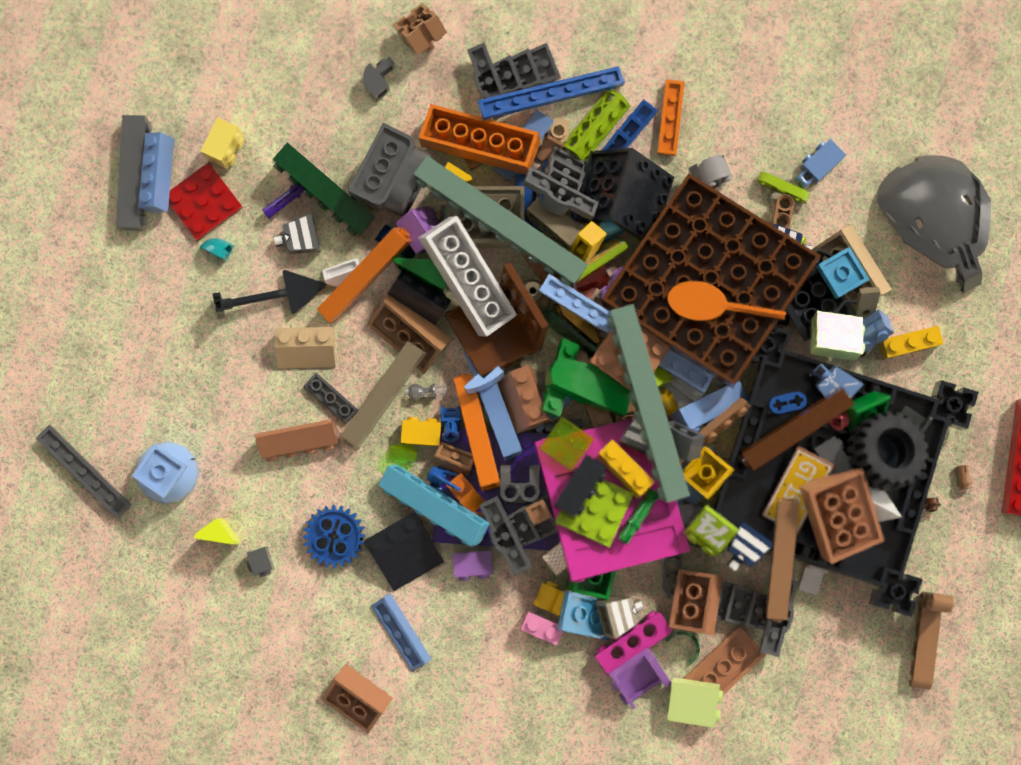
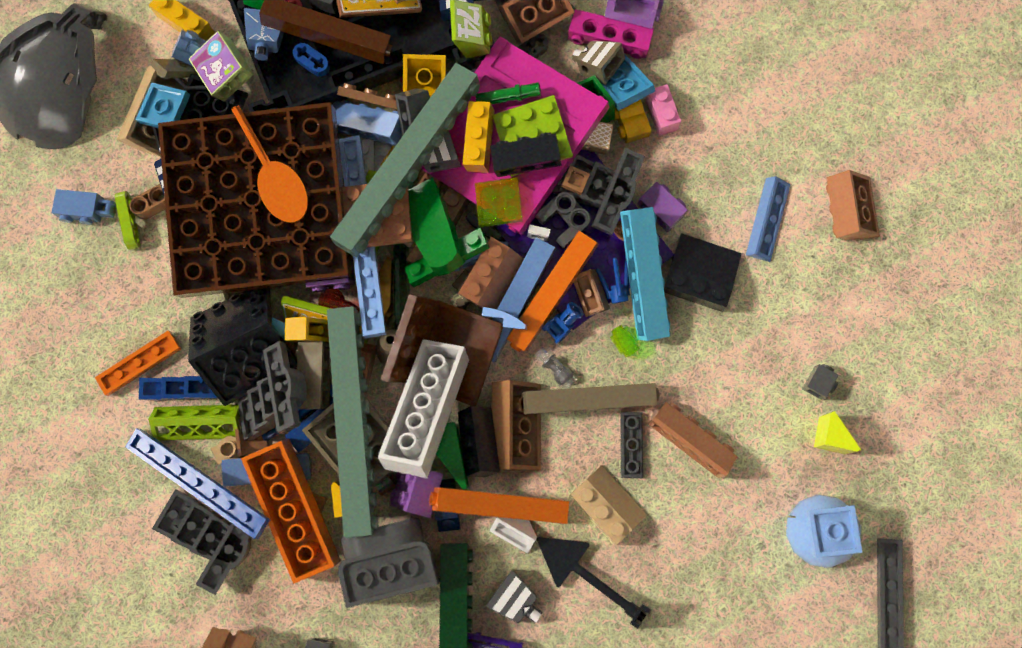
camera: 125 degrees left, 5 degrees down
(351, 540) = (752, 355): blue gear -> none
(421, 432) = (592, 340): yellow brick -> none
(468, 495) = (610, 249): orange slope -> none
(525, 457) = (539, 232): none -> white tile
(712, 171) = (158, 285): light grey brick -> none

